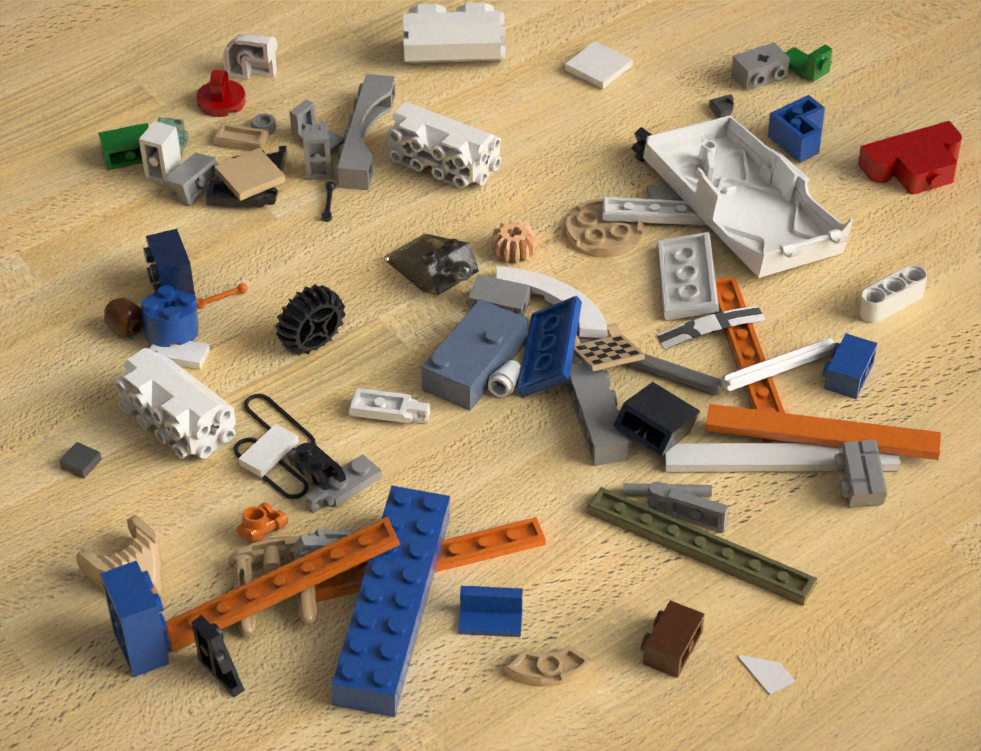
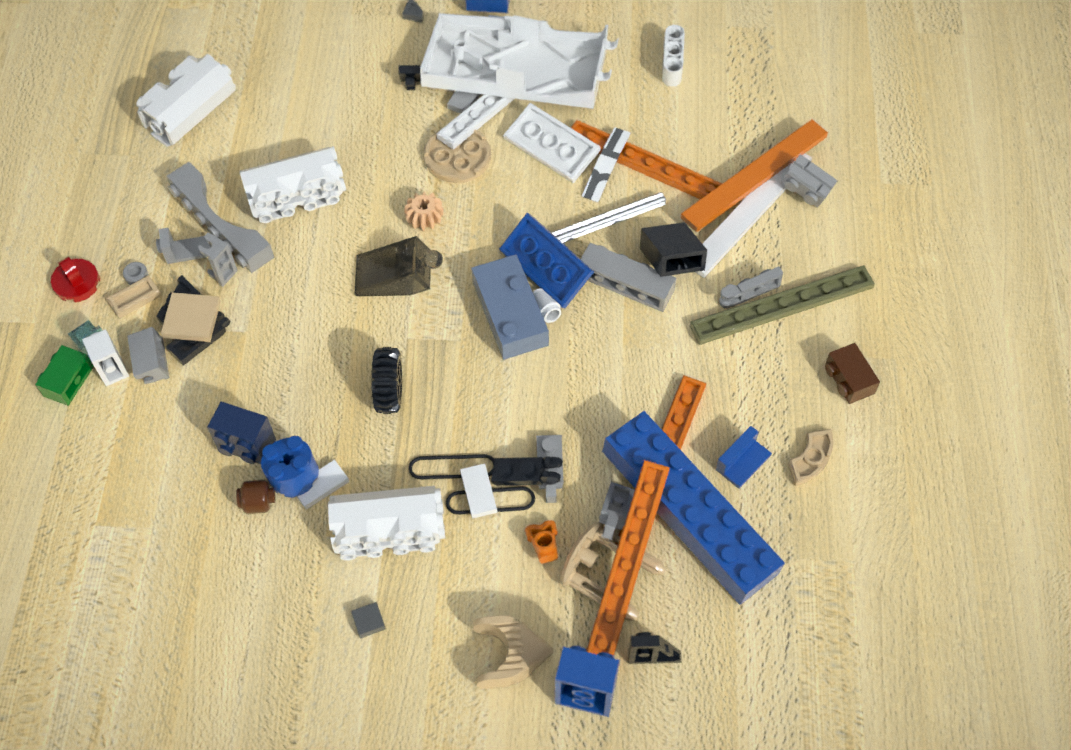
camera: 50 degrees left, 15 degrees up
(241, 288) = (295, 402): orange hinge -> none
(250, 55) = (59, 230): white brick -> none
(327, 215) = (275, 299): black hinge -> none
(388, 406) = (505, 391): white hinge -> none
(501, 293) = (468, 254): light grey hinge -> none
(591, 320) = (495, 221): white tile -> none
(598, 65) = (299, 44): white tile -> none
(607, 351) = (586, 231): tan flag -> none
(642, 489) = (715, 295): light grey bar -> none
(769, 673) = (911, 344): white sticker -> none
(777, 364) = (678, 156): white axle -> none
(849, 365) = (712, 120): blue brick -> none

